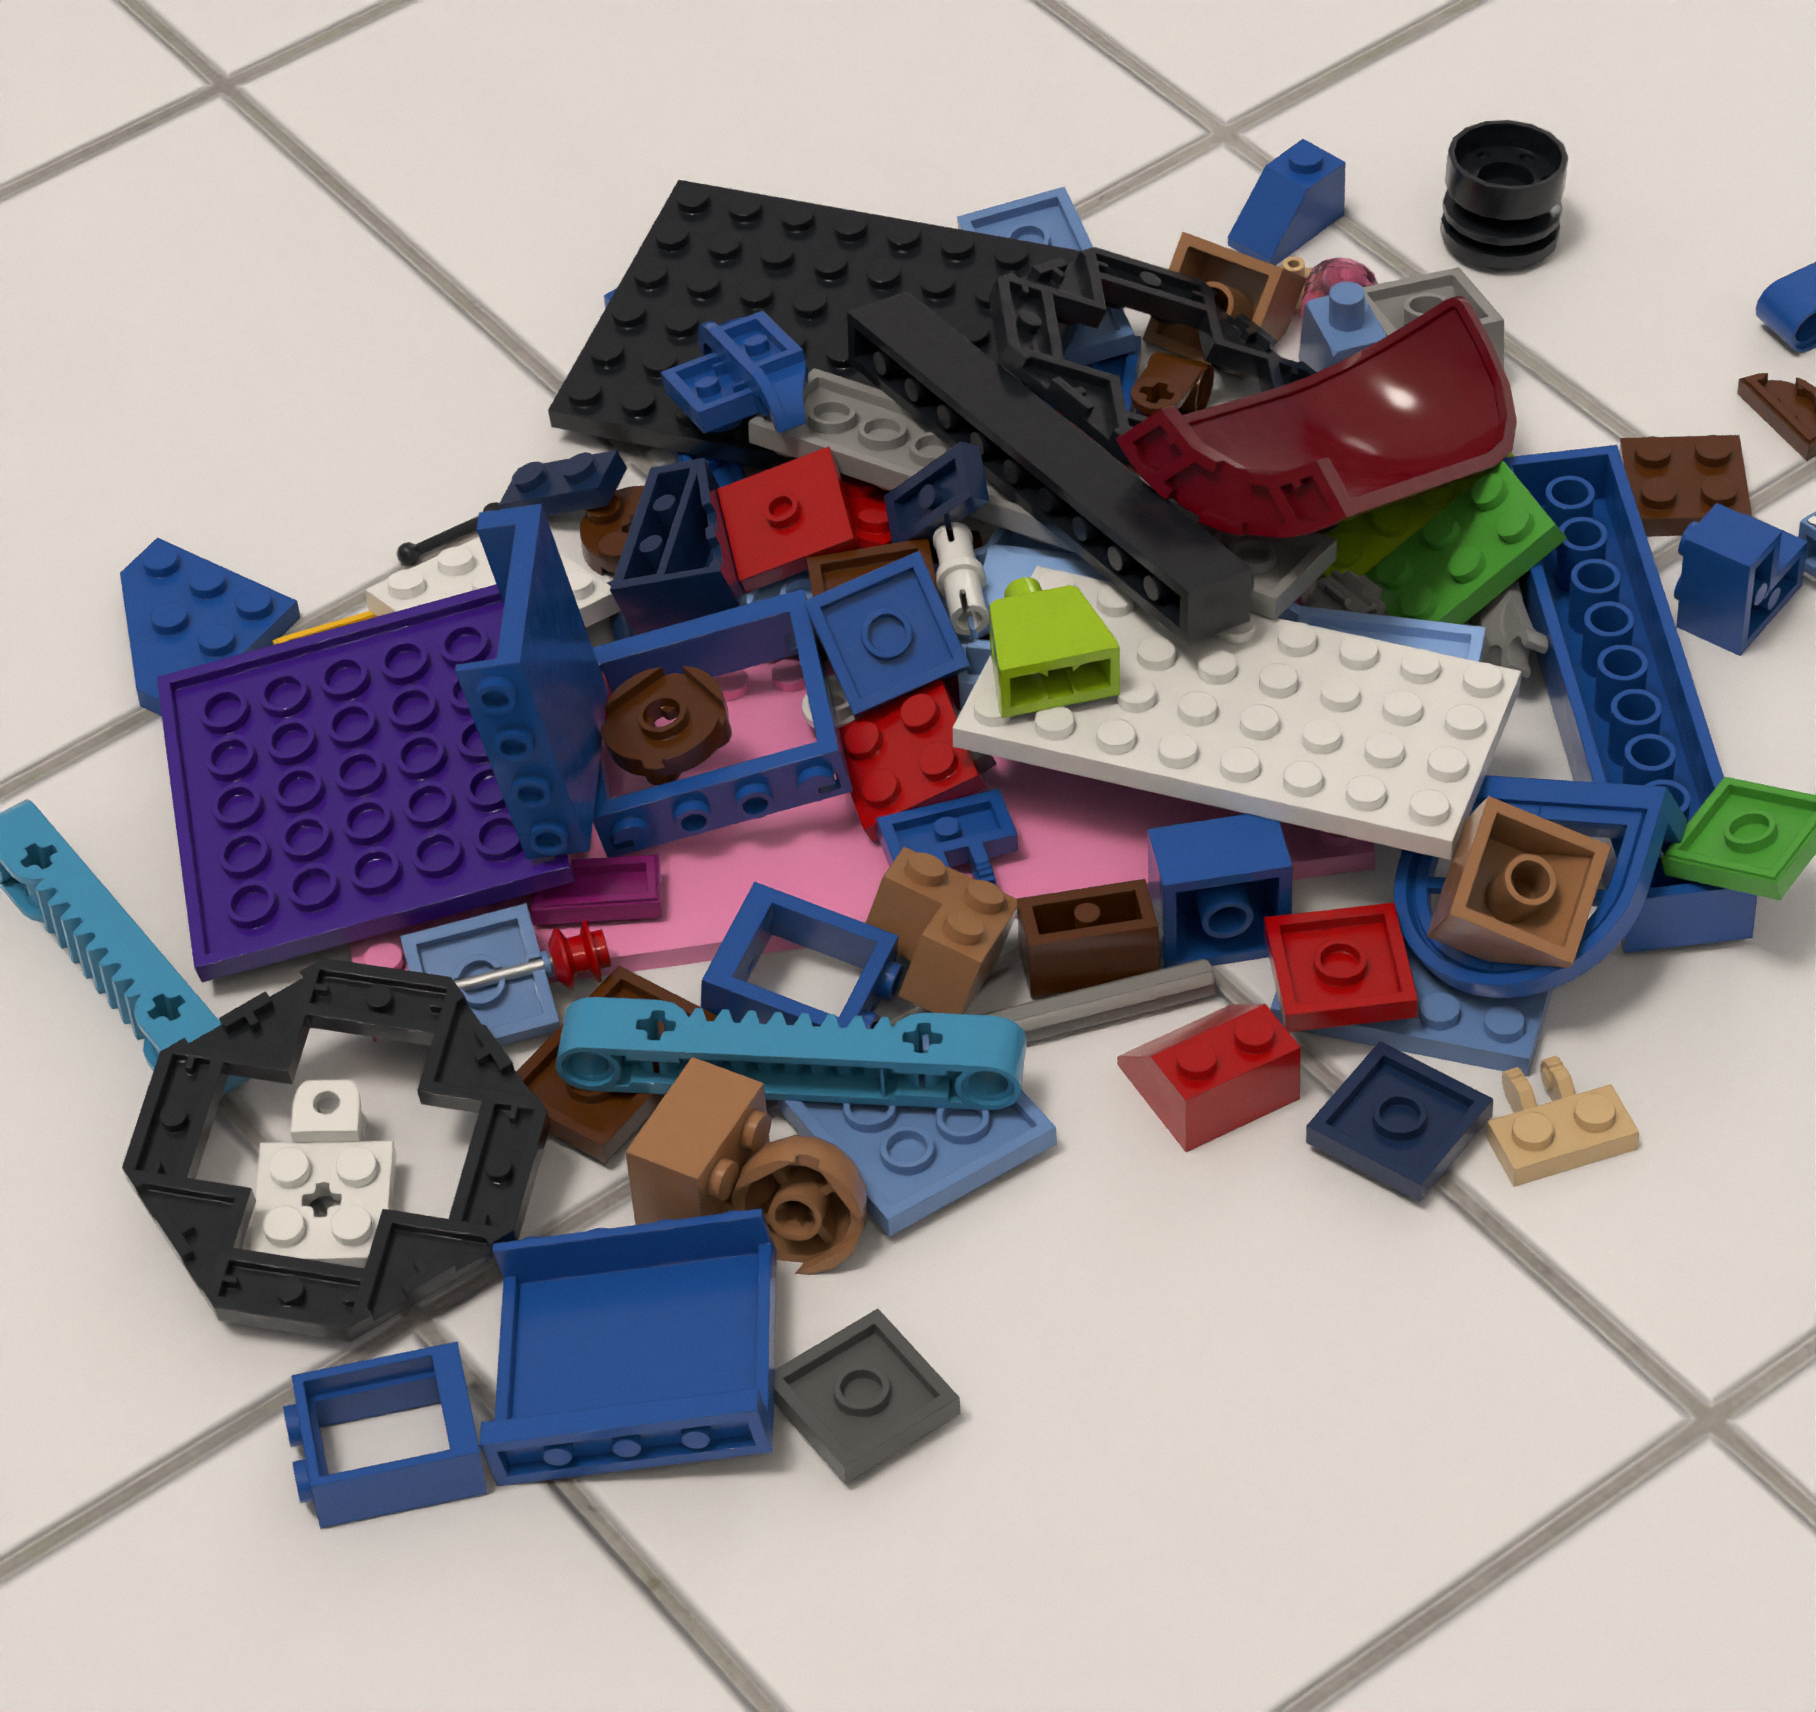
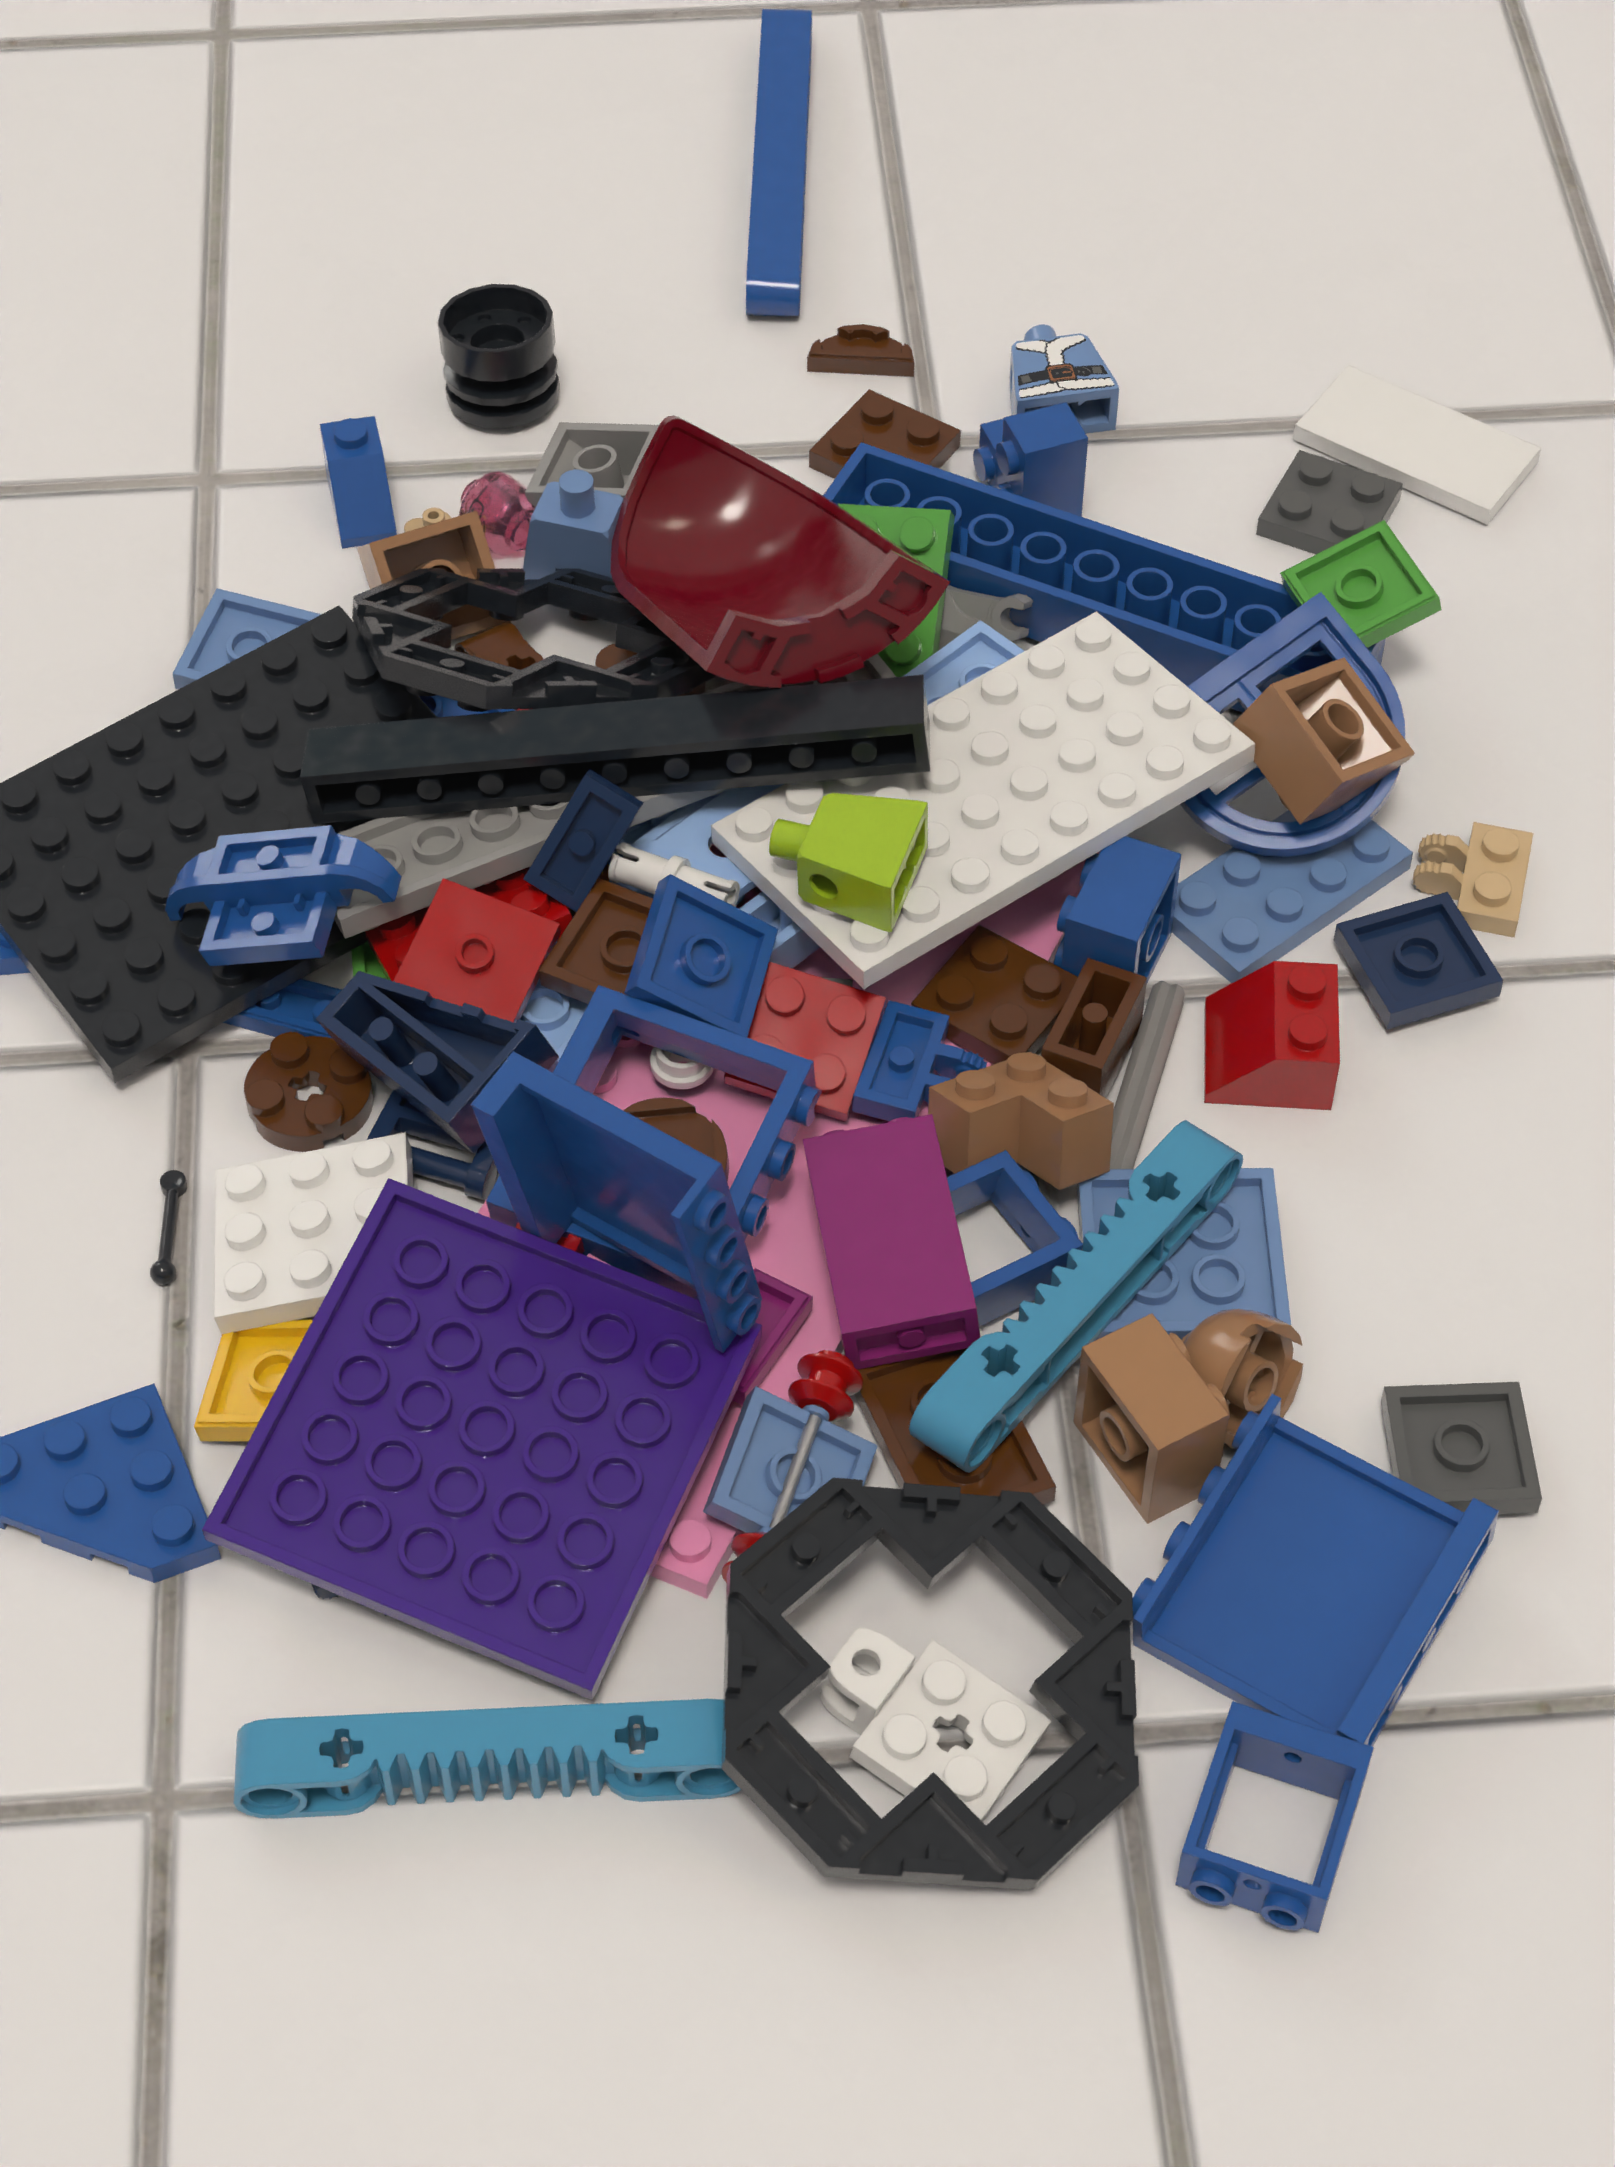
camera: 60 degrees left, 5 degrees up
(566, 484) = (211, 1110): dark blue plate -> none
(734, 904) = (891, 1242): none -> magenta panel
(1079, 848) = (997, 996): none -> reddish brown plate
(1340, 967) = (1260, 898): red plate -> none

